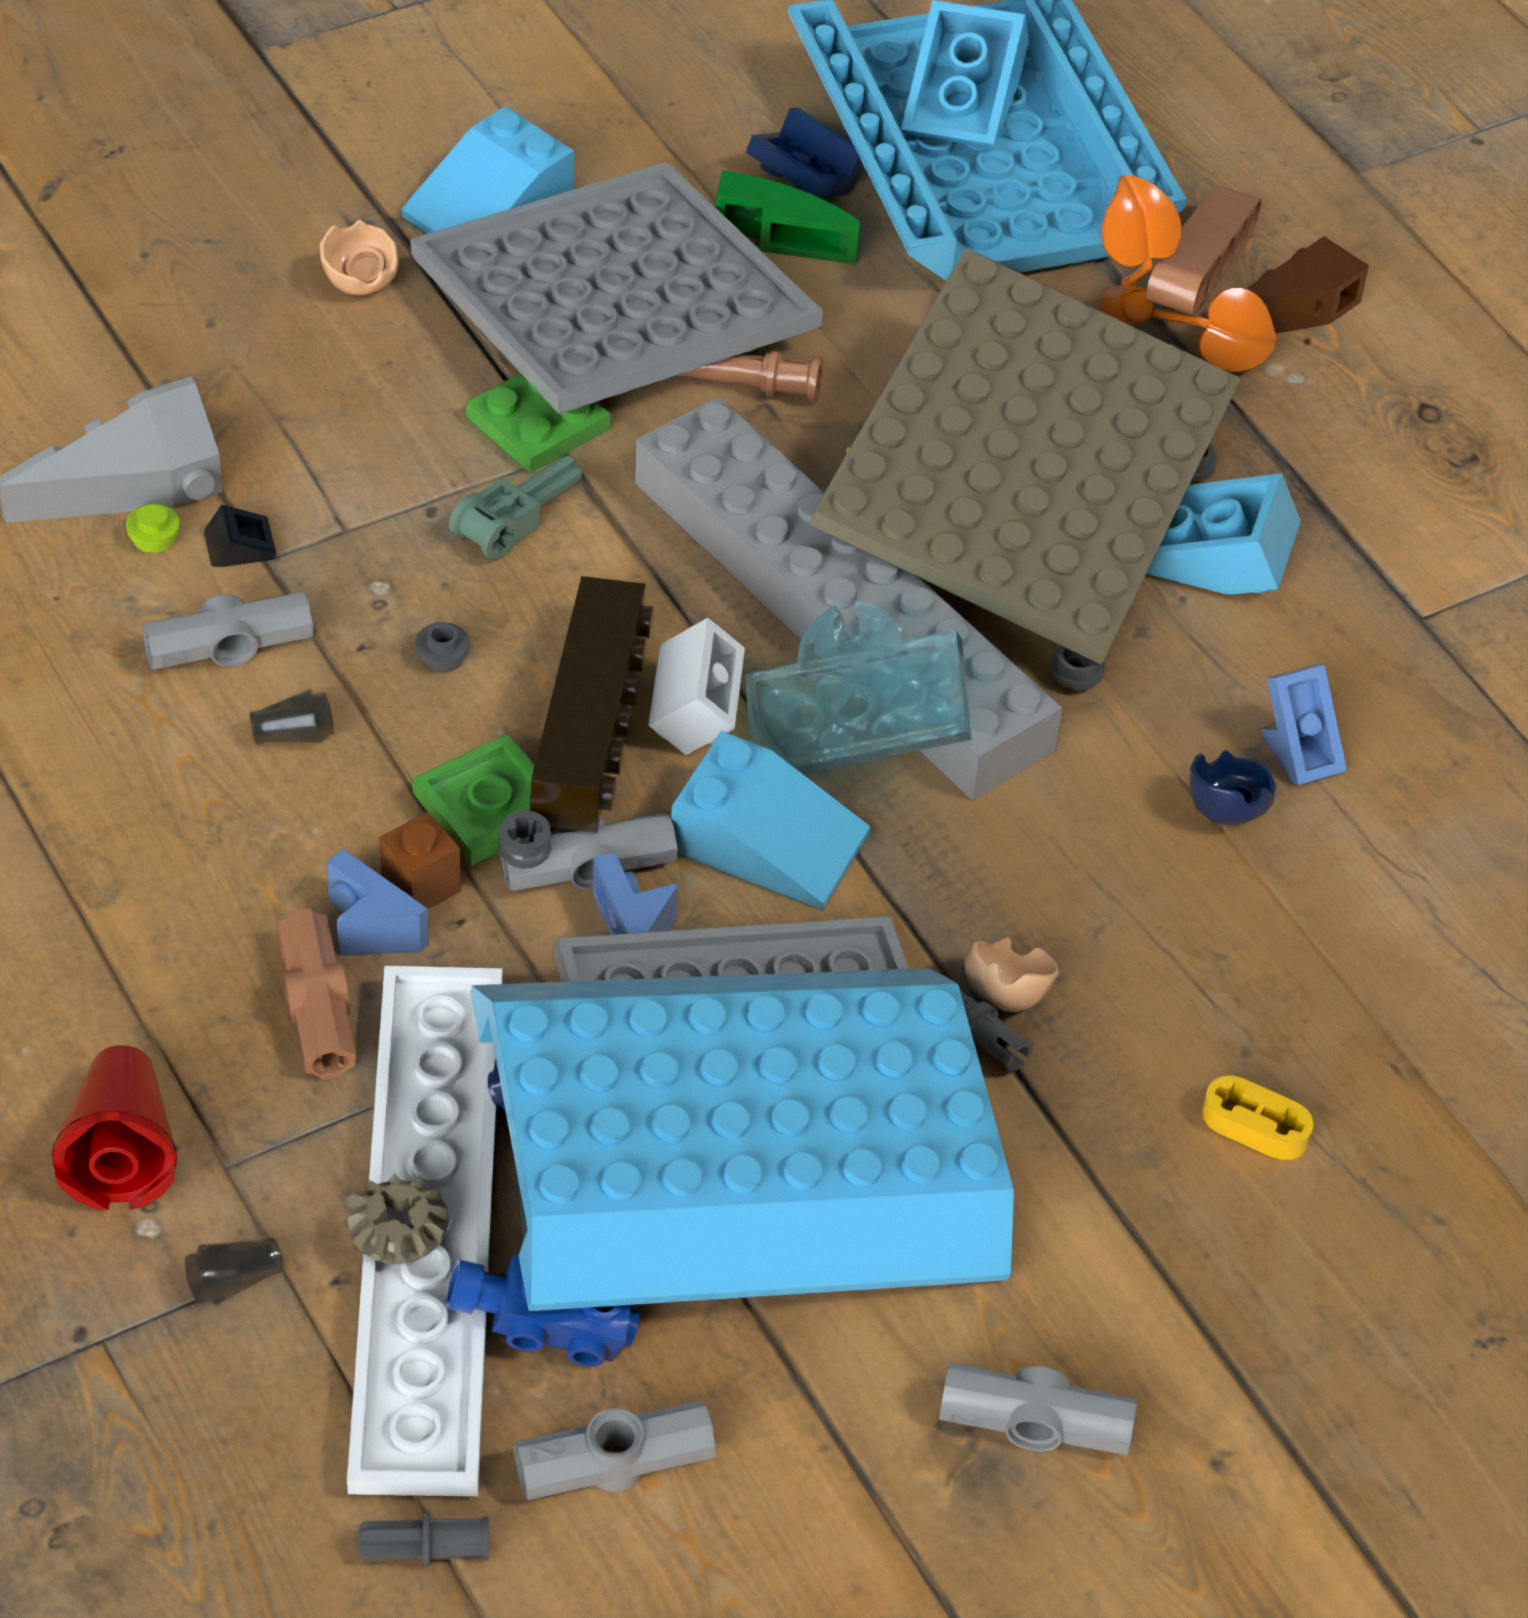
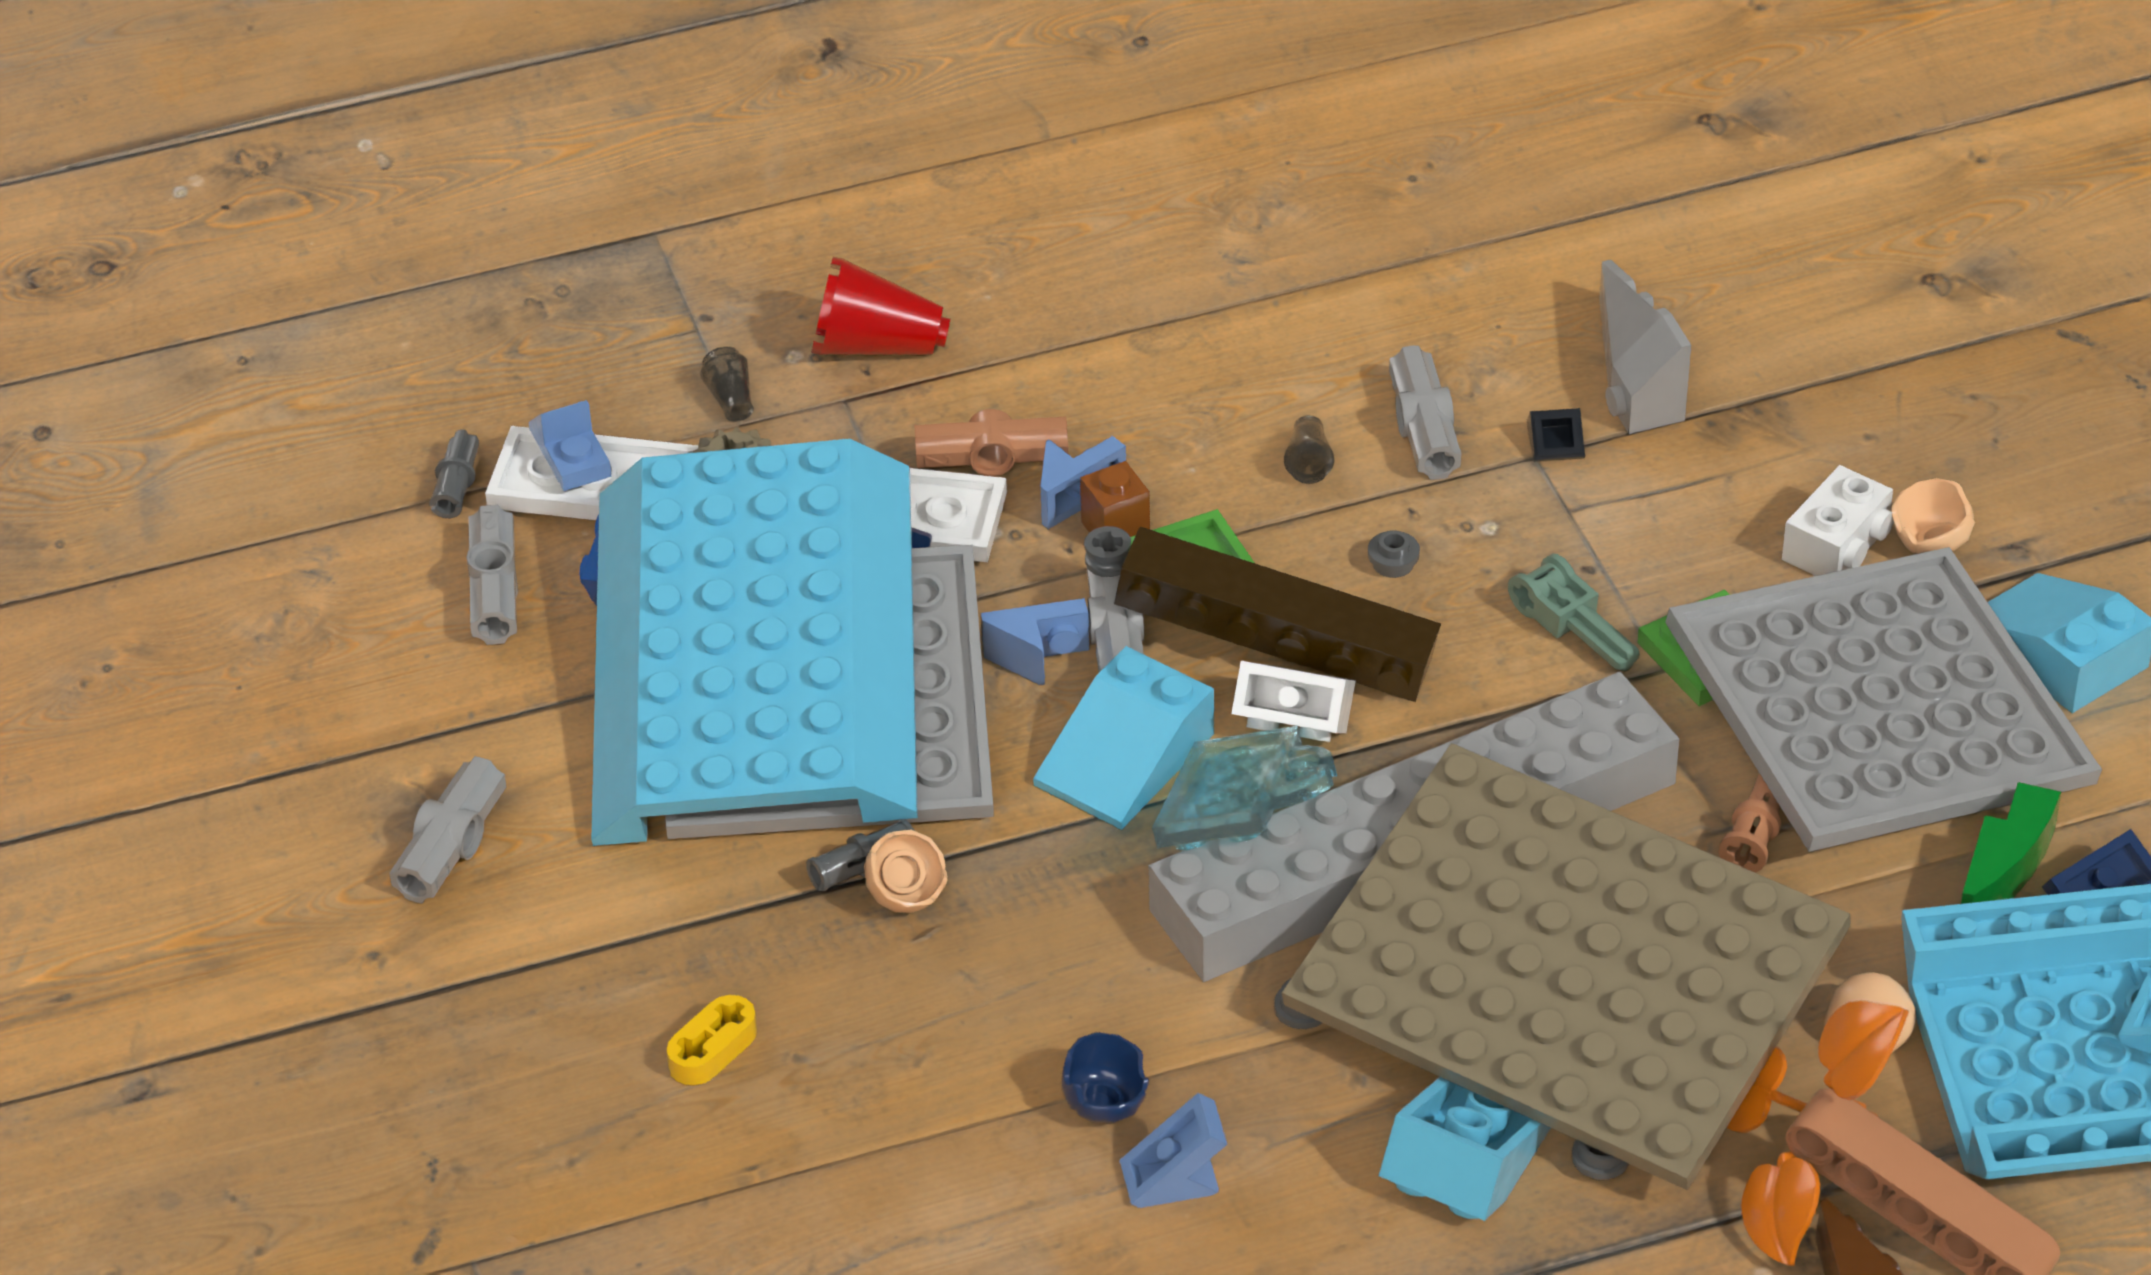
camera: 105 degrees right, 5 degrees down
(153, 527) = (1571, 378): lime plate -> none
(368, 325) = (1838, 523): none -> white brick
(388, 1396) = (571, 445): none -> medium blue slope

